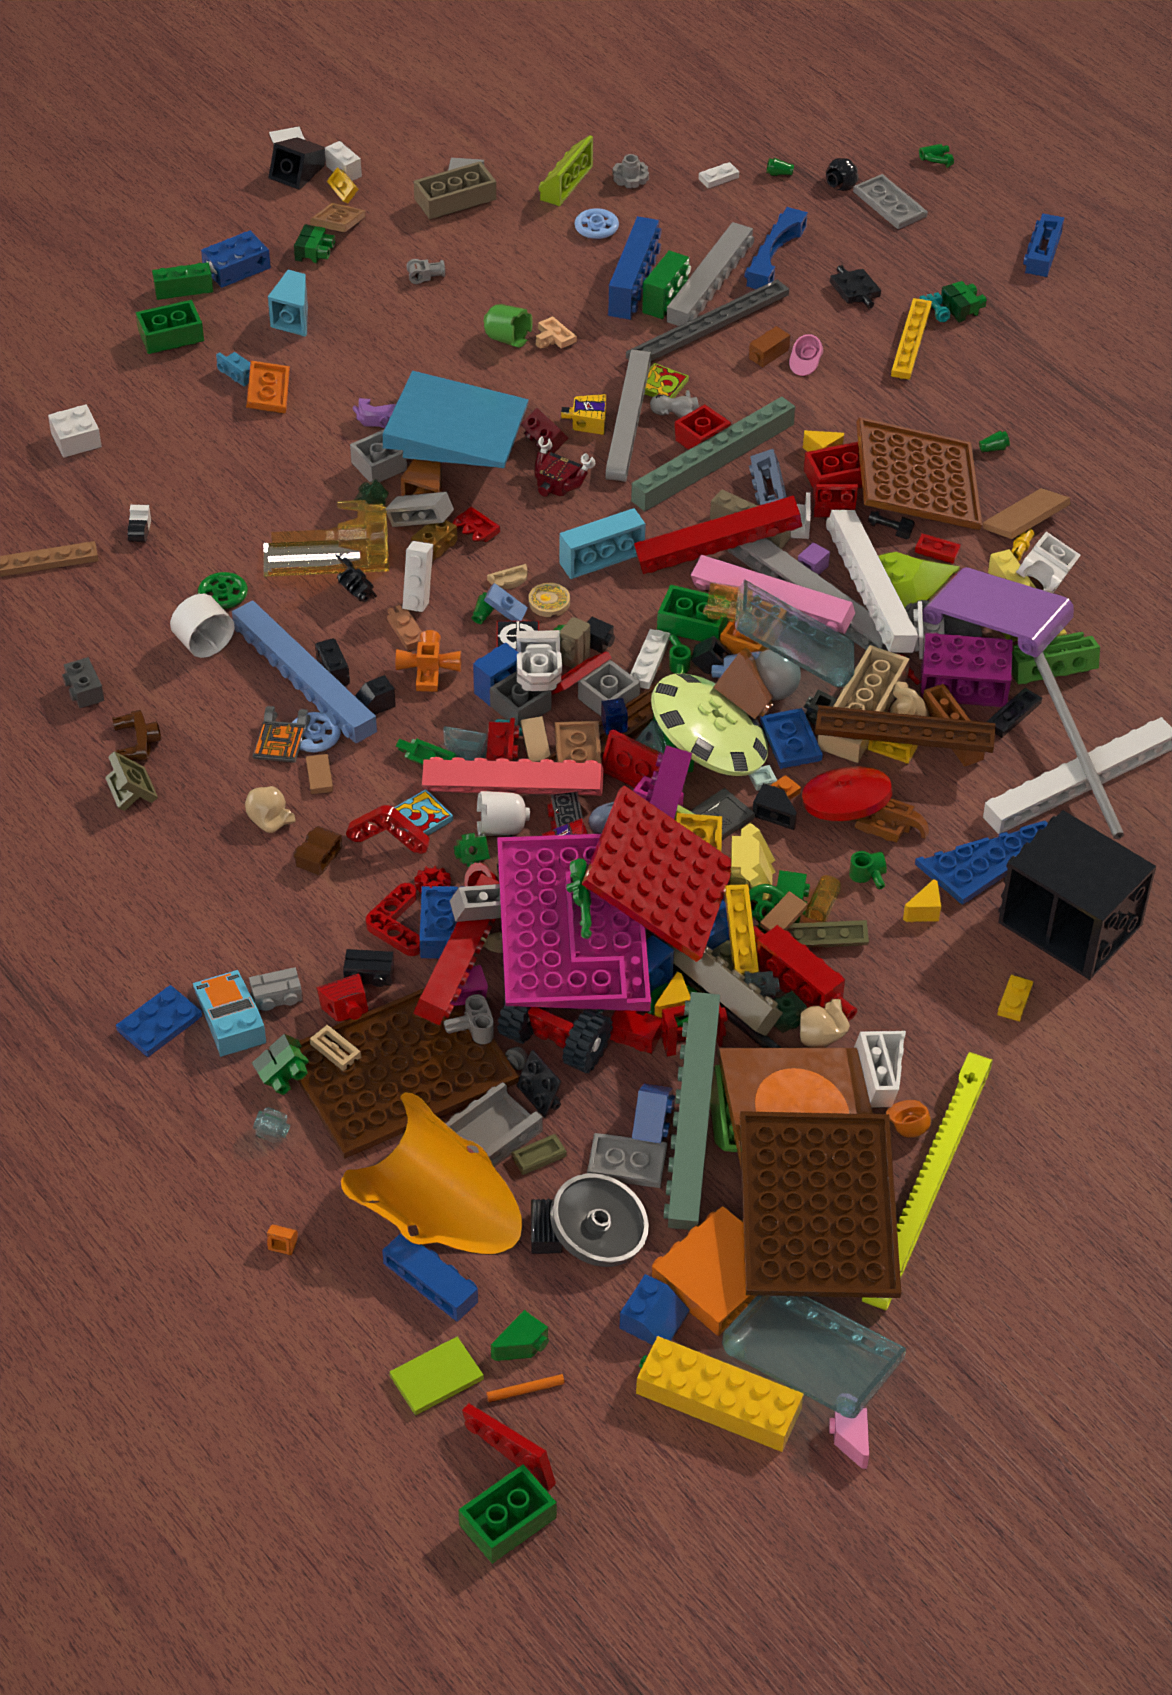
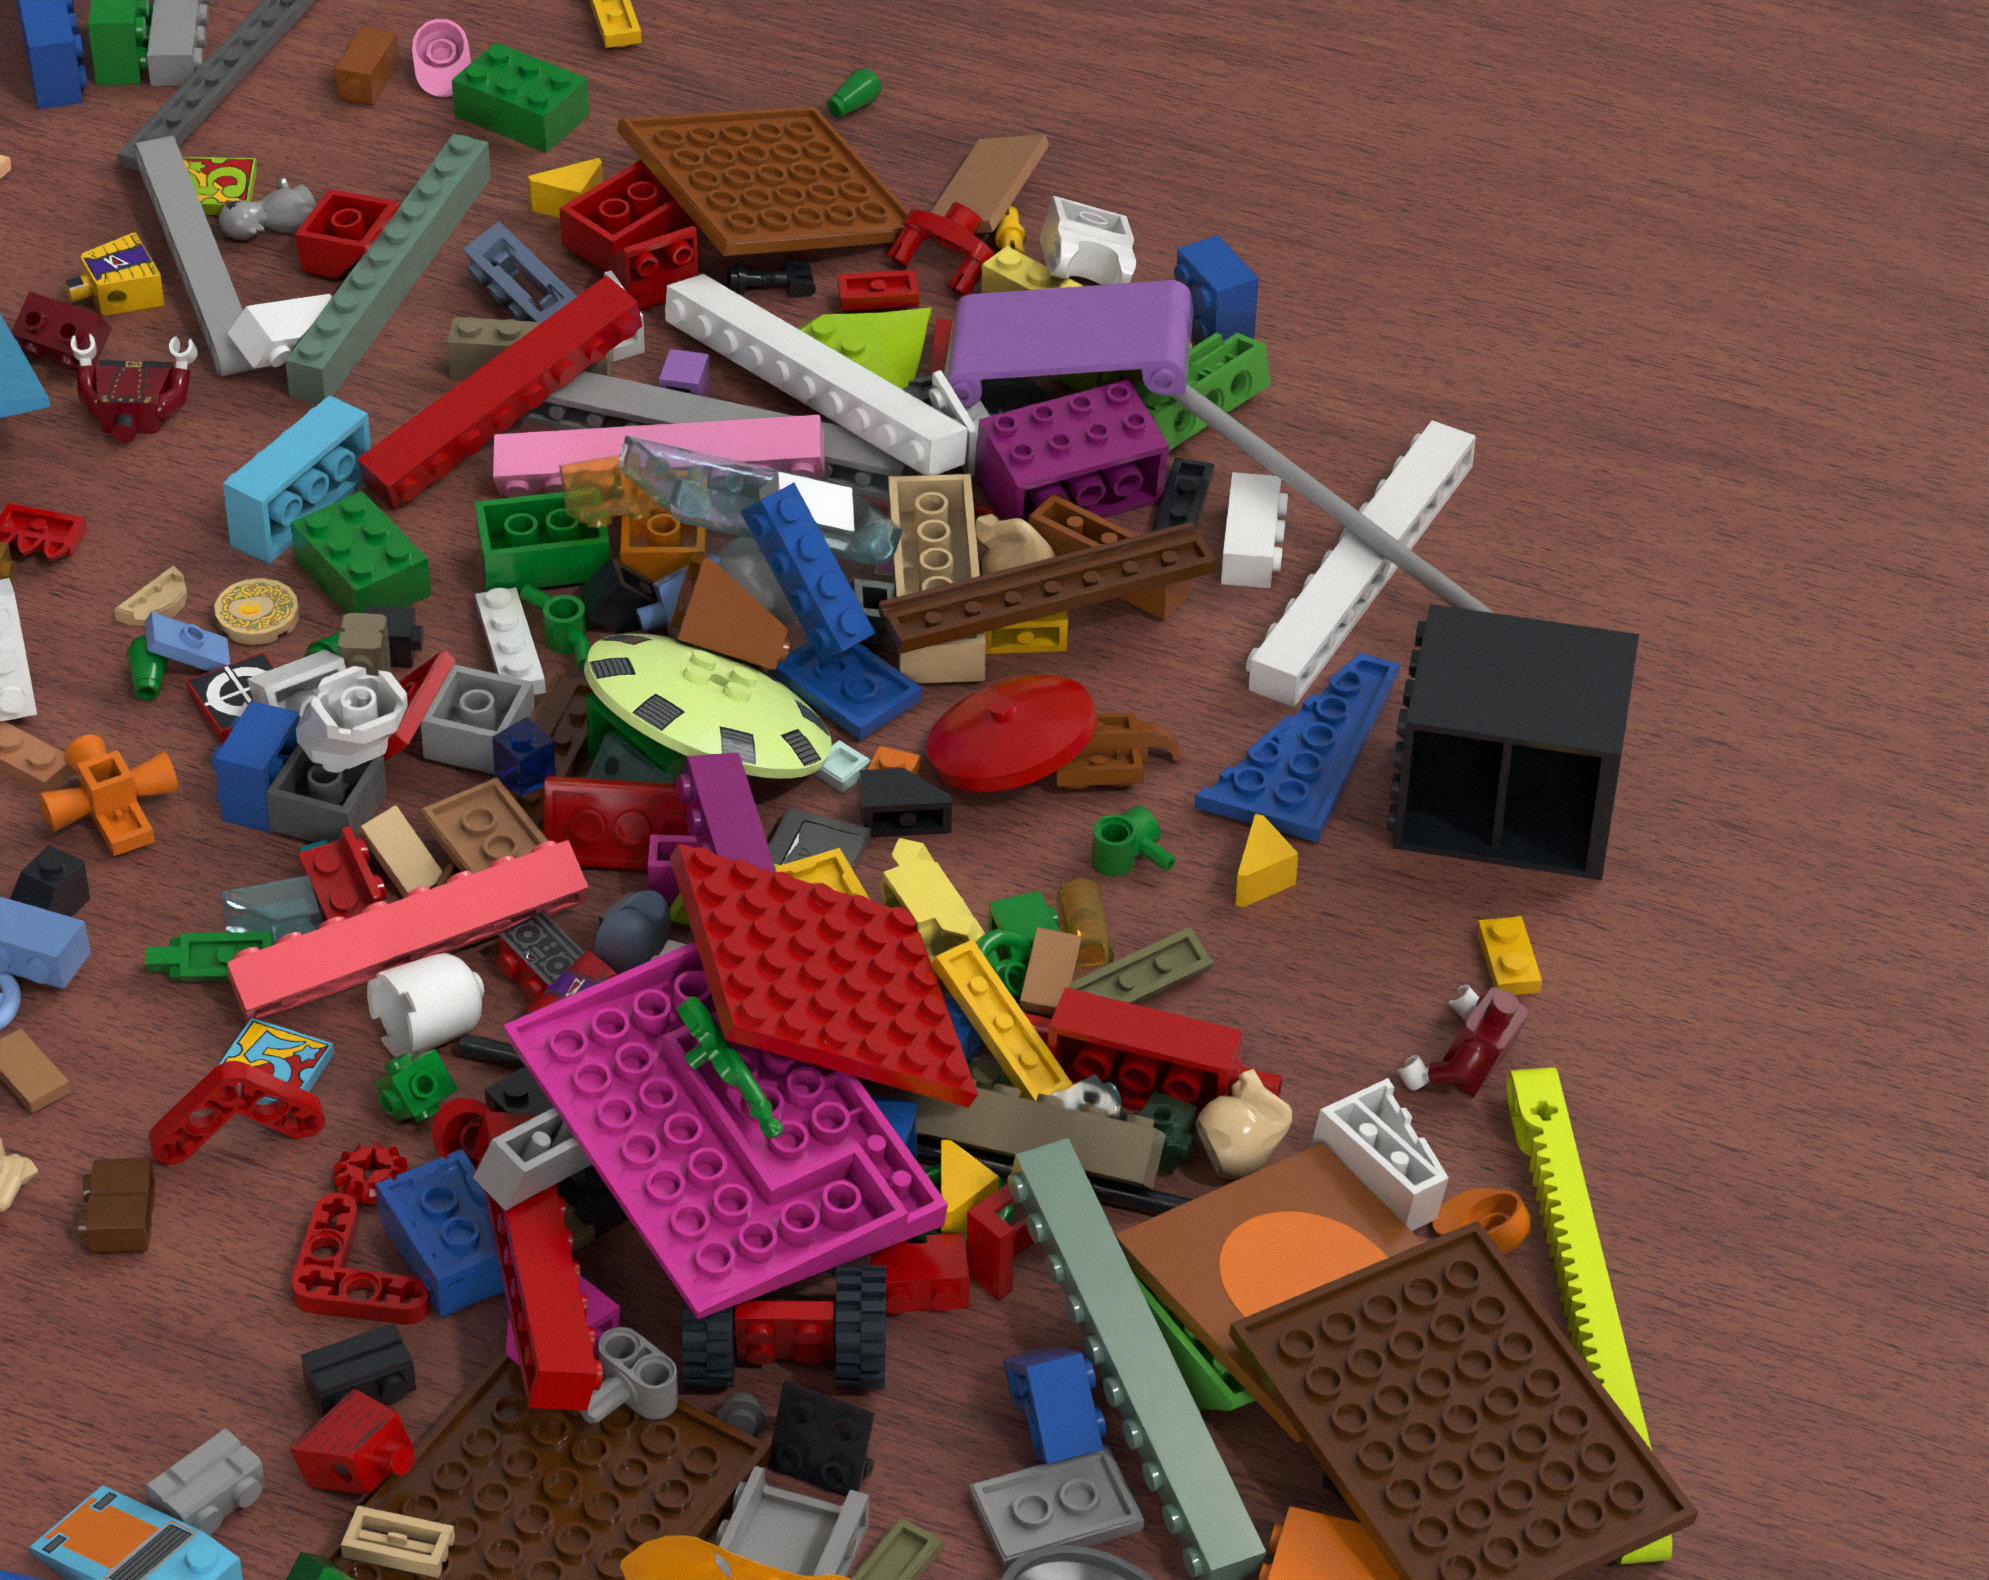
camera: 30 degrees left, 5 degrees down
(608, 591) = (360, 556): none -> green brick
(634, 465) = (273, 329): none -> white slope
(791, 677) = (807, 572): none -> blue brick
(824, 644) = (828, 503): none -> white panel
(830, 388) = (520, 97): none -> green brick
(963, 1032) = (1480, 1045): none -> dark red torso
(990, 531) = (954, 232): none -> red connector
(1035, 739) = (1253, 530): none -> white brick
(1097, 611) = (1220, 289): none -> blue brick

